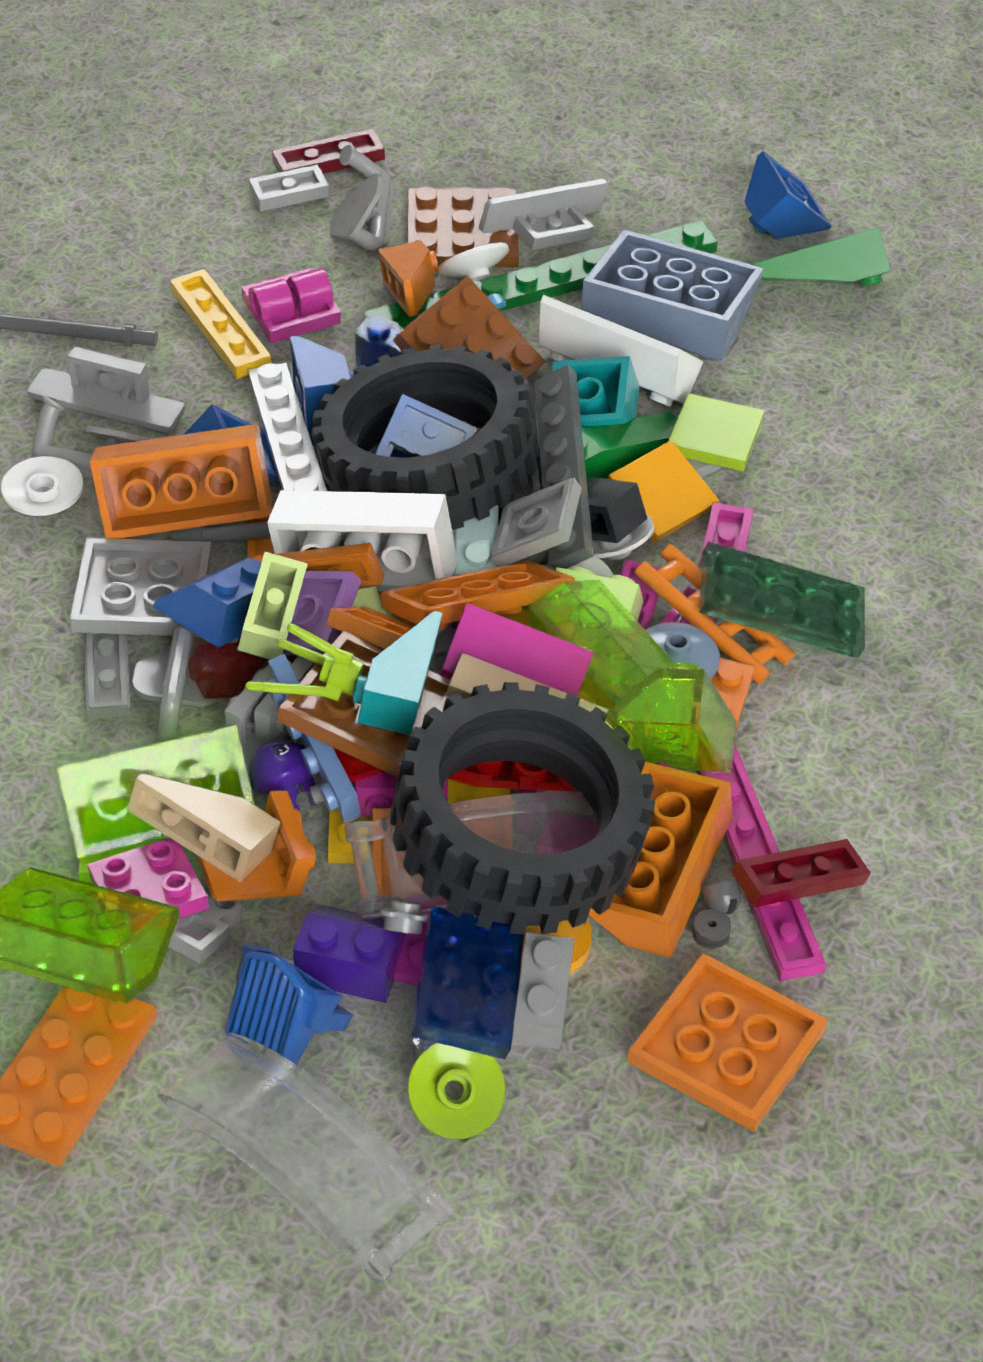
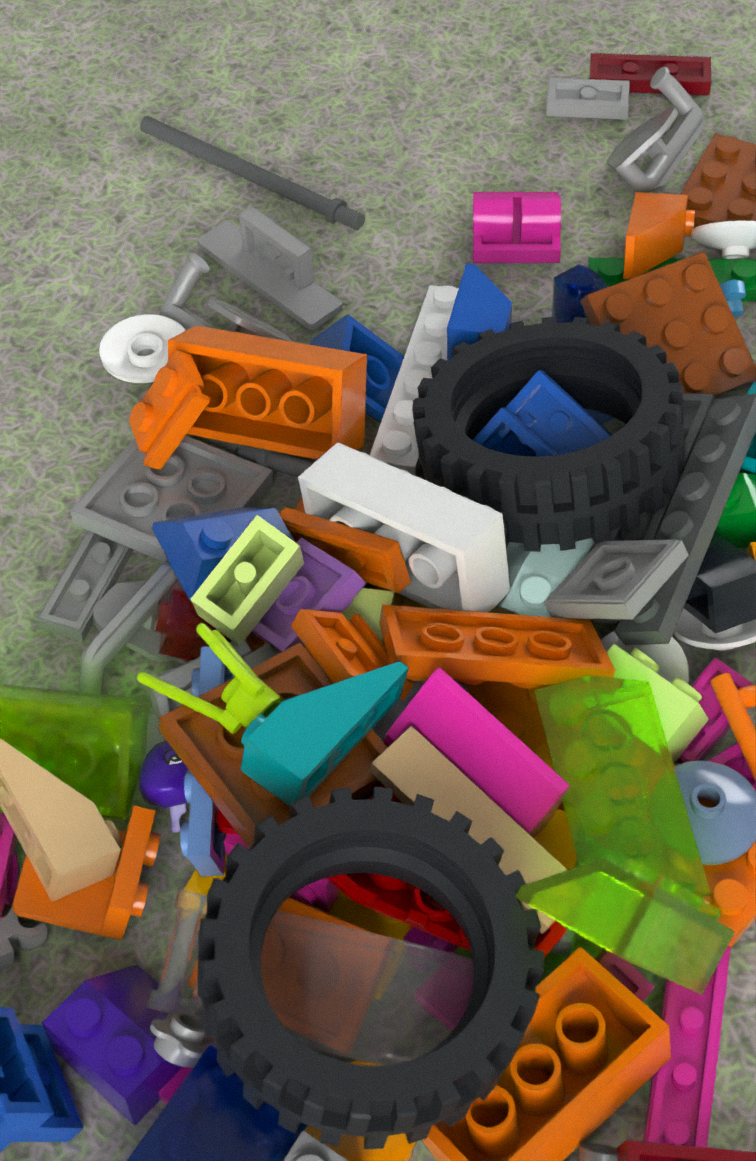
camera: 30 degrees right, 5 degrees up
(112, 517) = (168, 409): none -> orange plate
(220, 323) = (431, 225): yellow plate -> none

